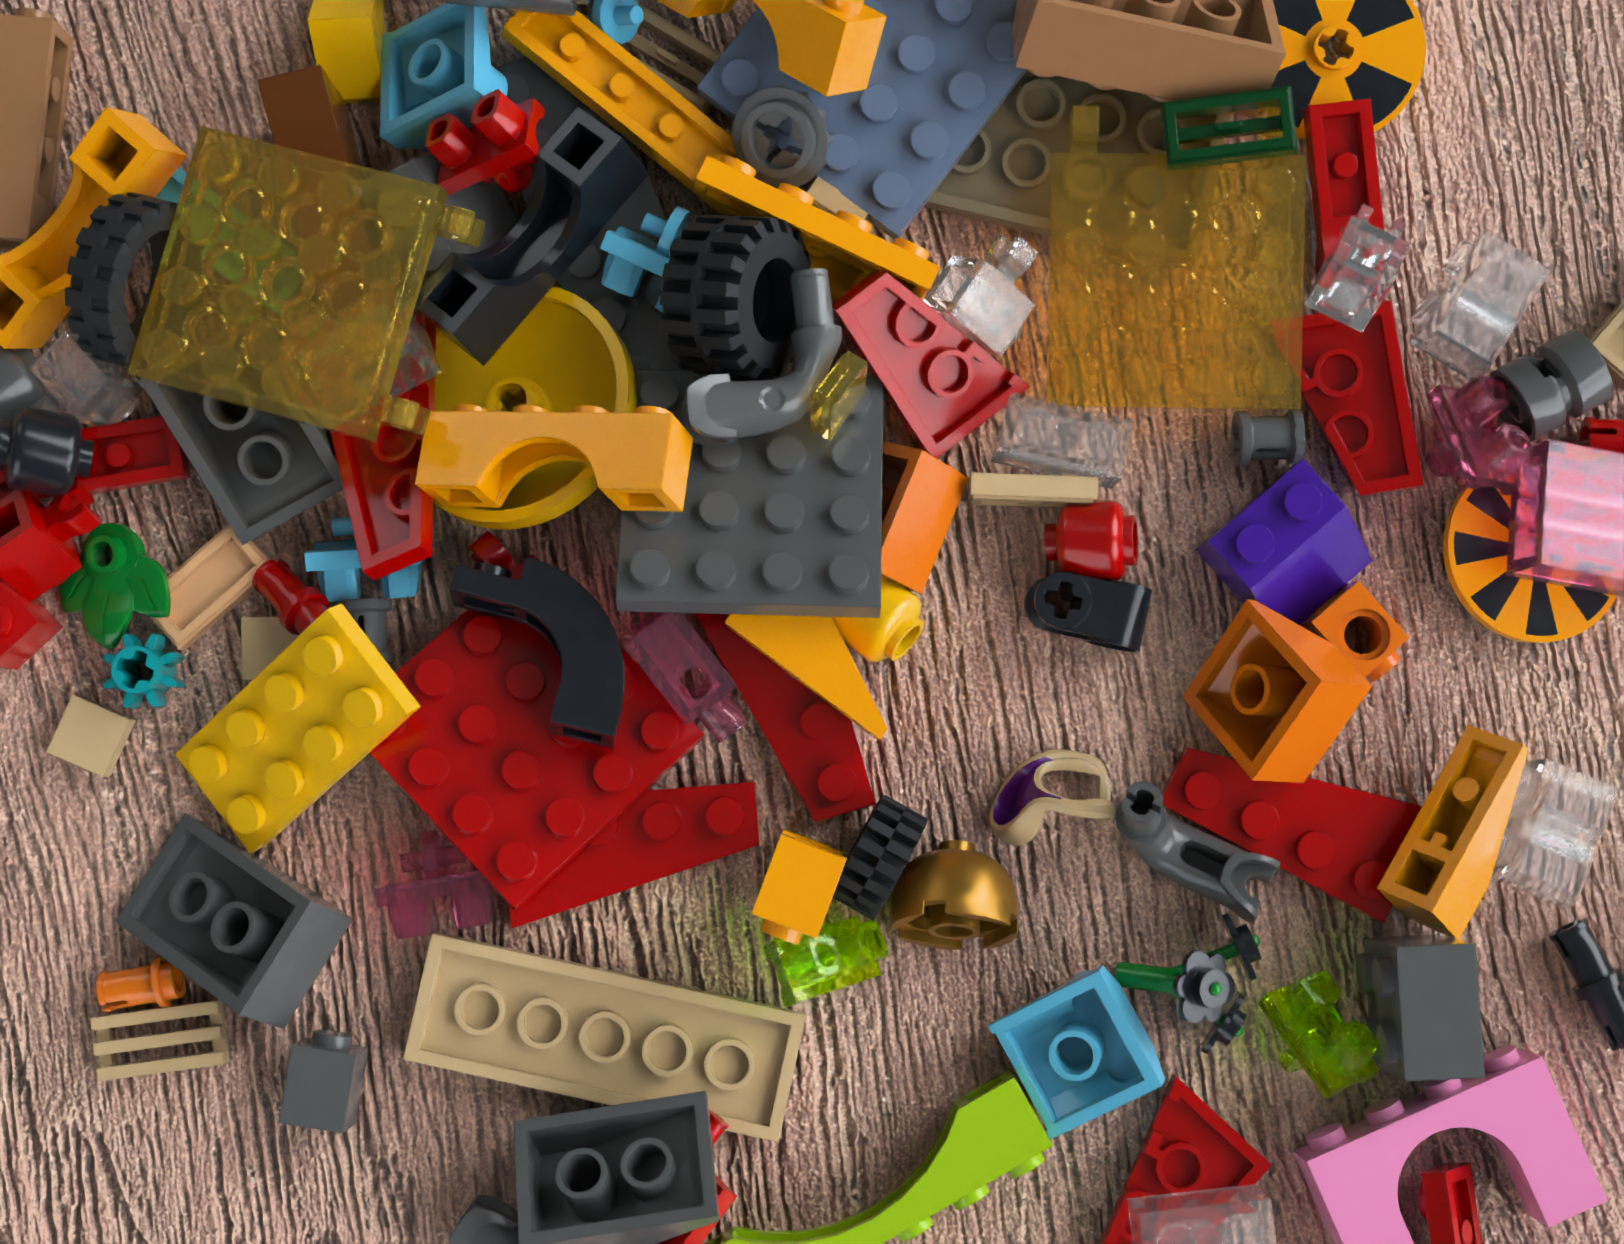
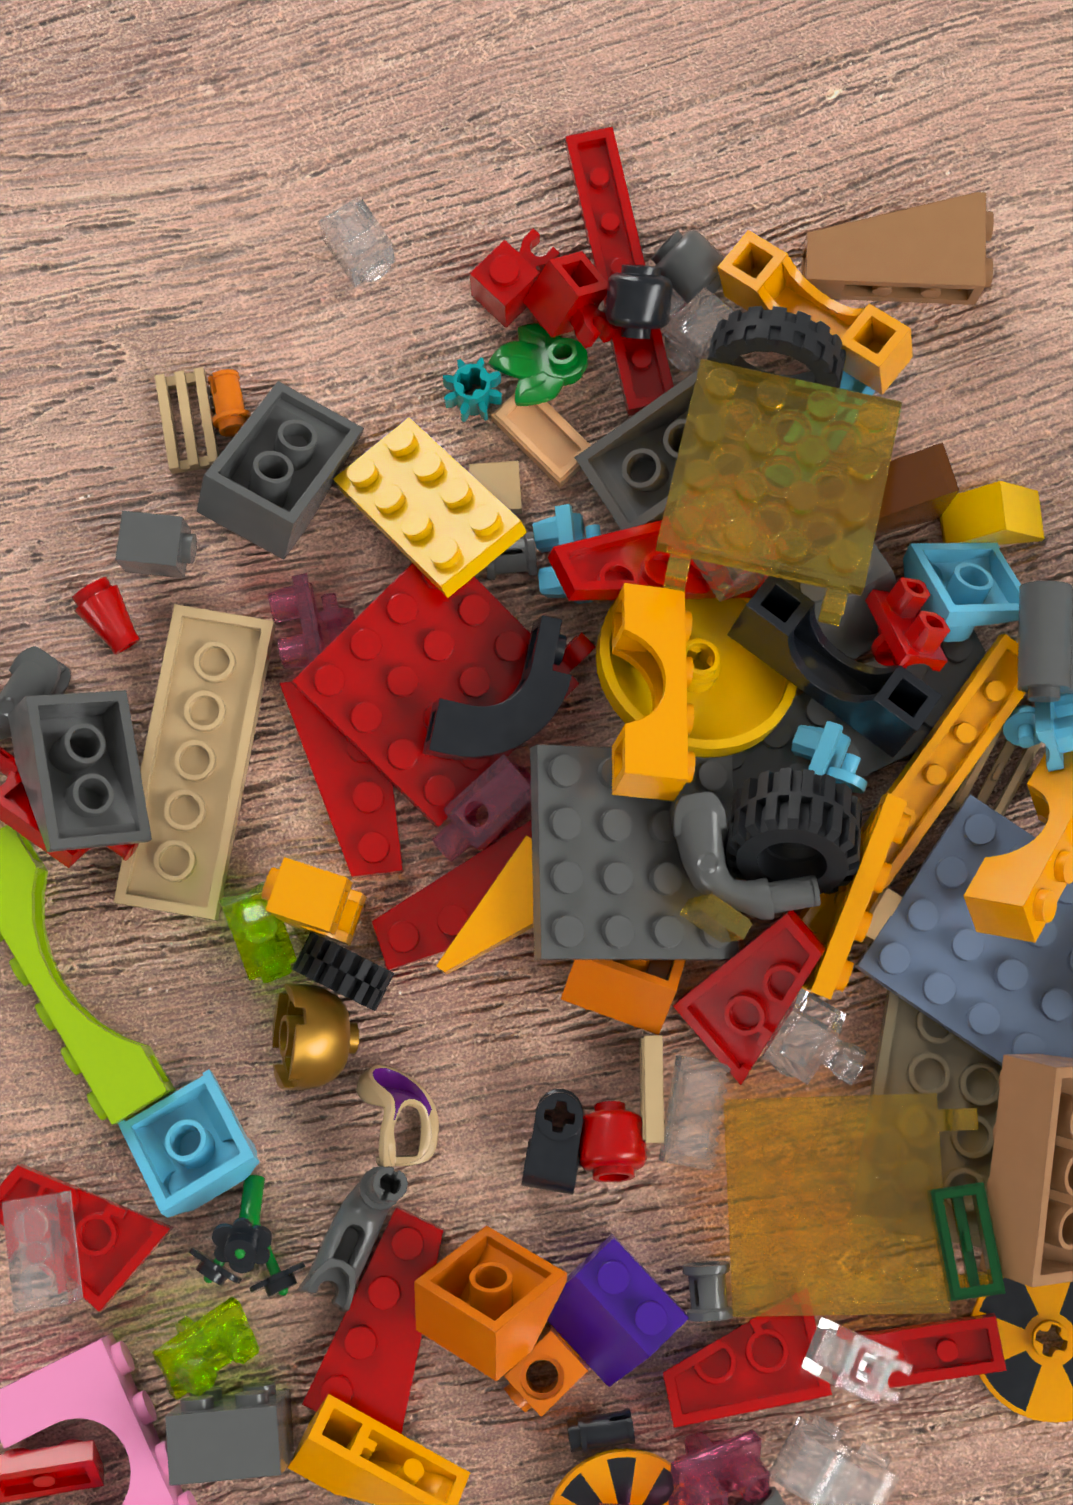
camera: 90 degrees right, 5 degrees down
(90, 736) = (421, 353): tan tile -> none
(293, 600) = (539, 493): red pin -> none
(411, 1147) = (105, 613): none -> red cone
(755, 141) = (926, 844): dark grey gear -> none
(892, 632) = (532, 977): yellow head -> none
(1422, 572) = (600, 1430): none -> black pin

